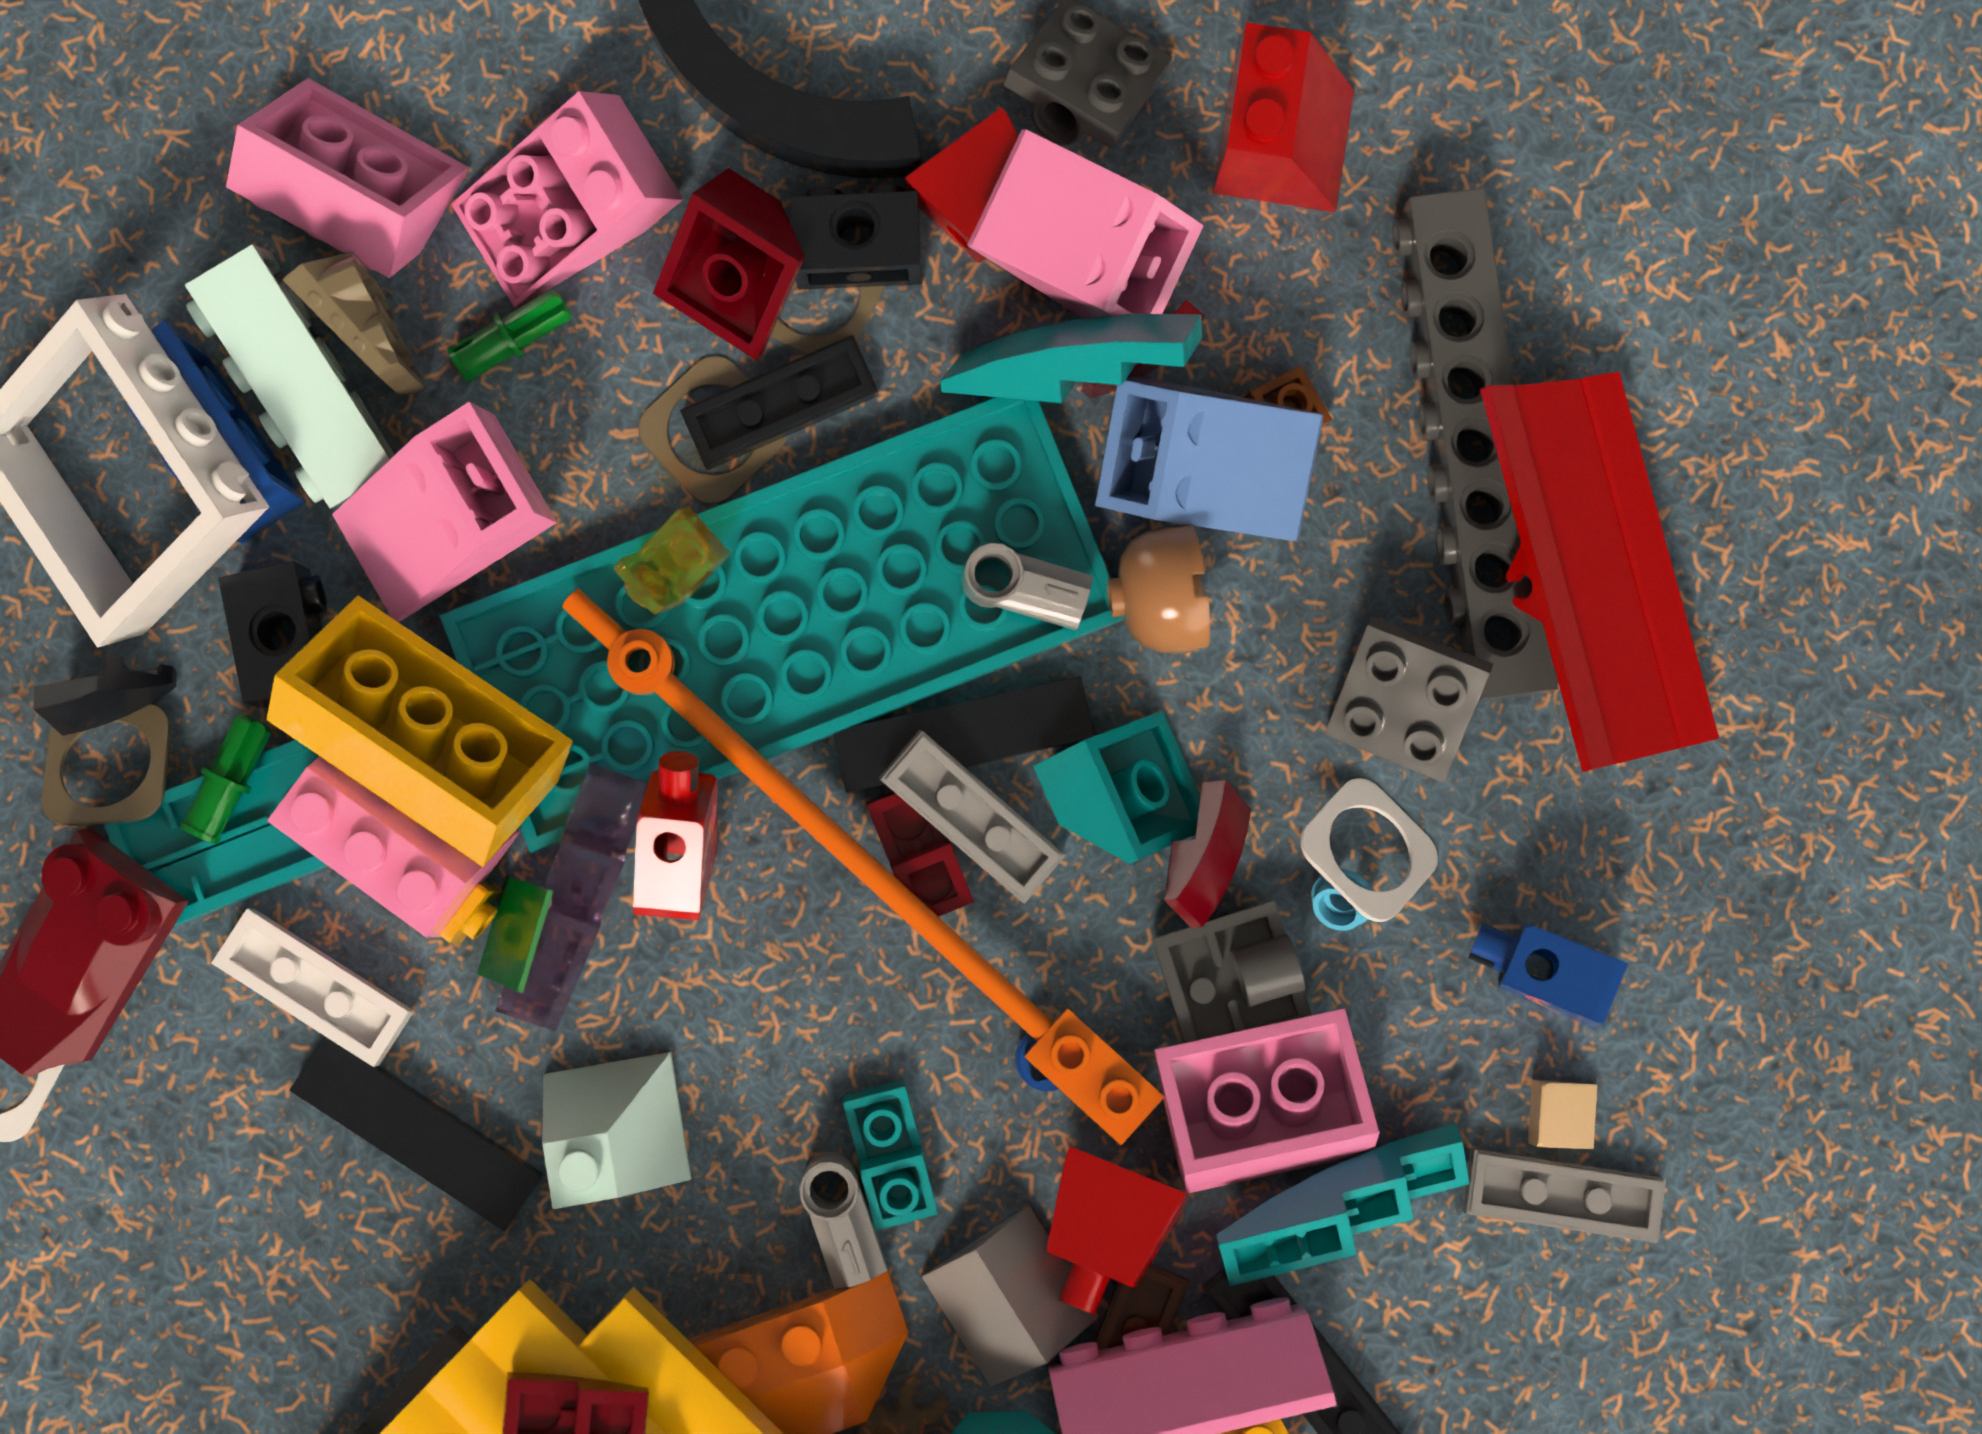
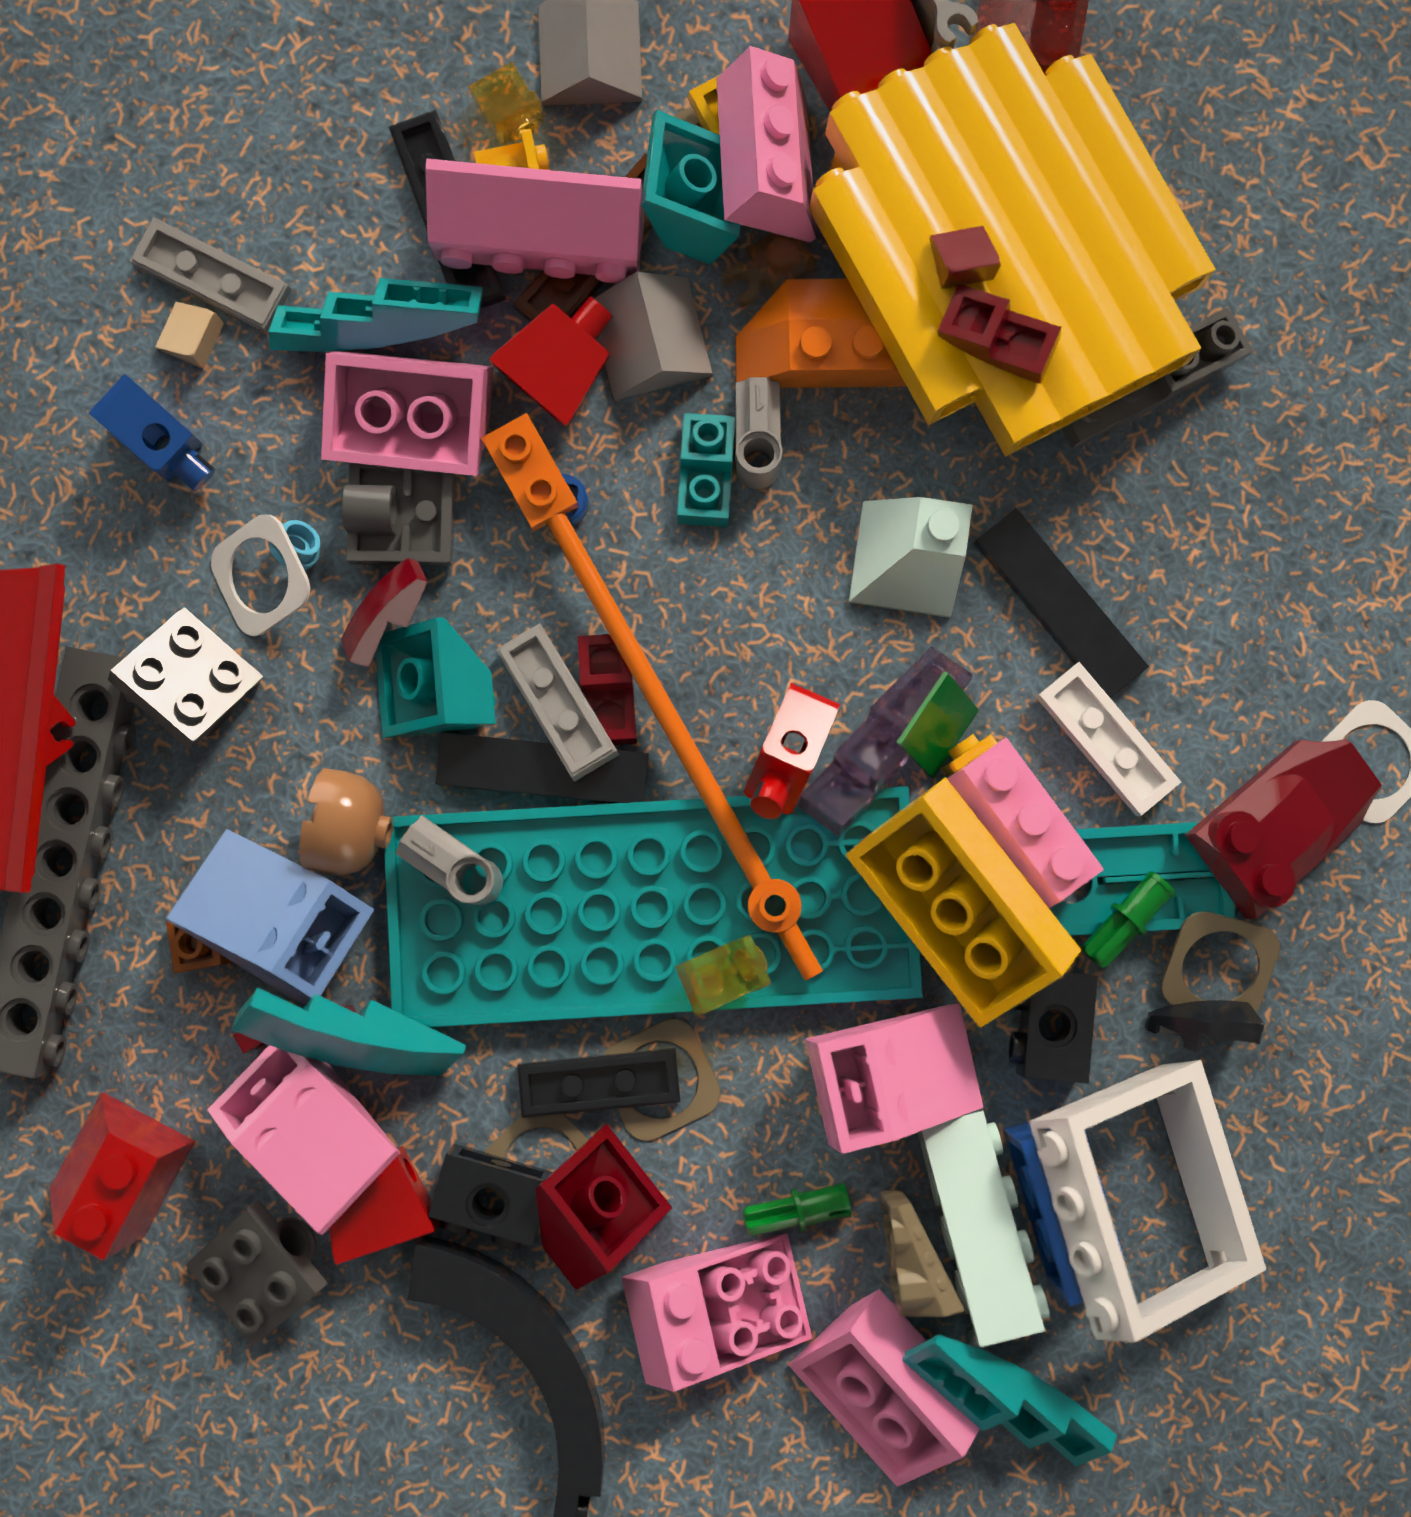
camera: 160 degrees left, 0 degrees up
(215, 208) = (1001, 1393): none -> teal slope

